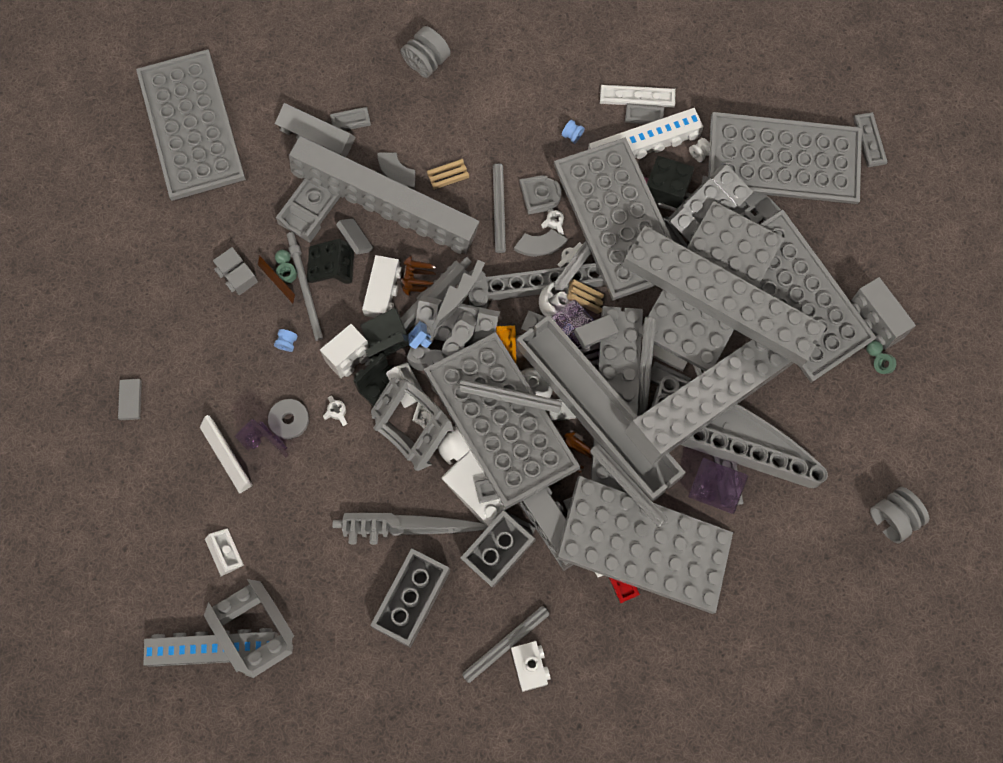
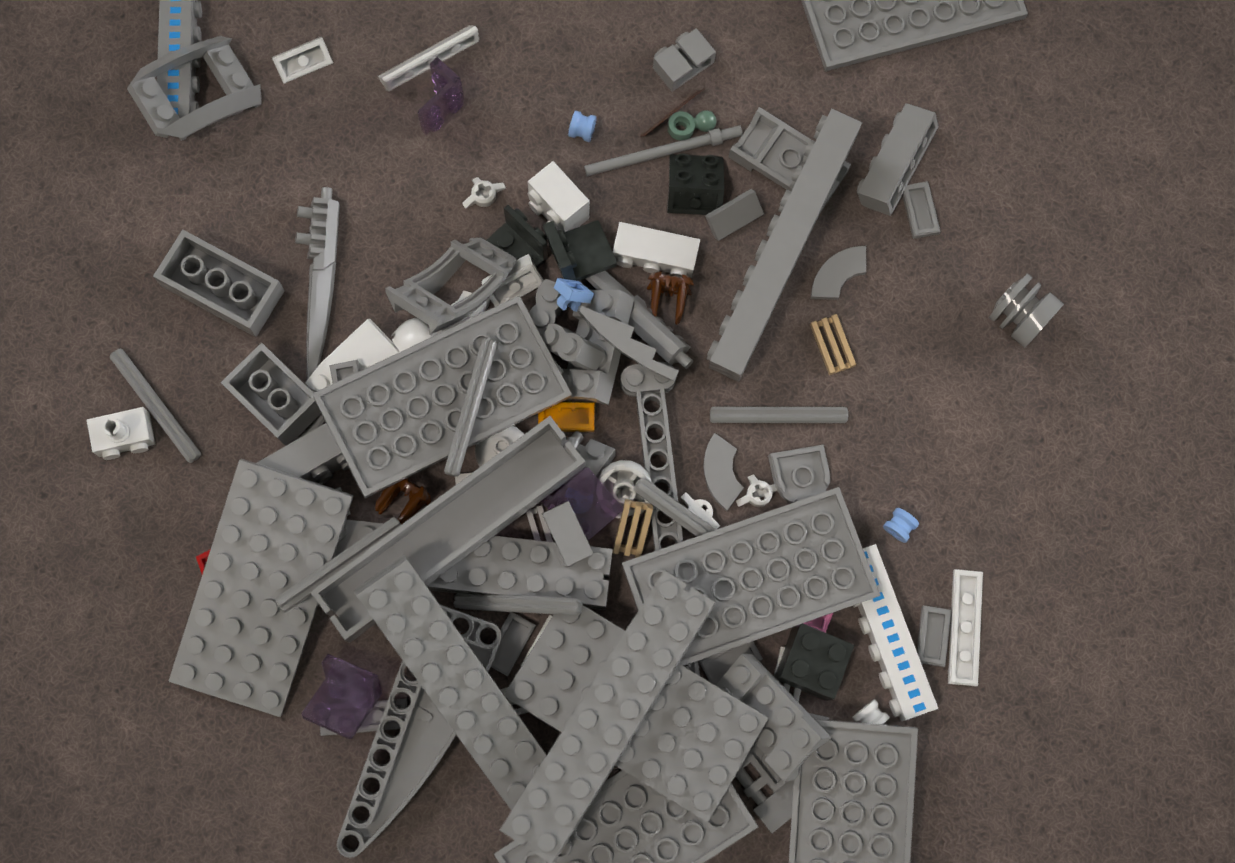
camera: 85 degrees right, 5 degrees up
(291, 430) = (474, 148): light grey tile -> none

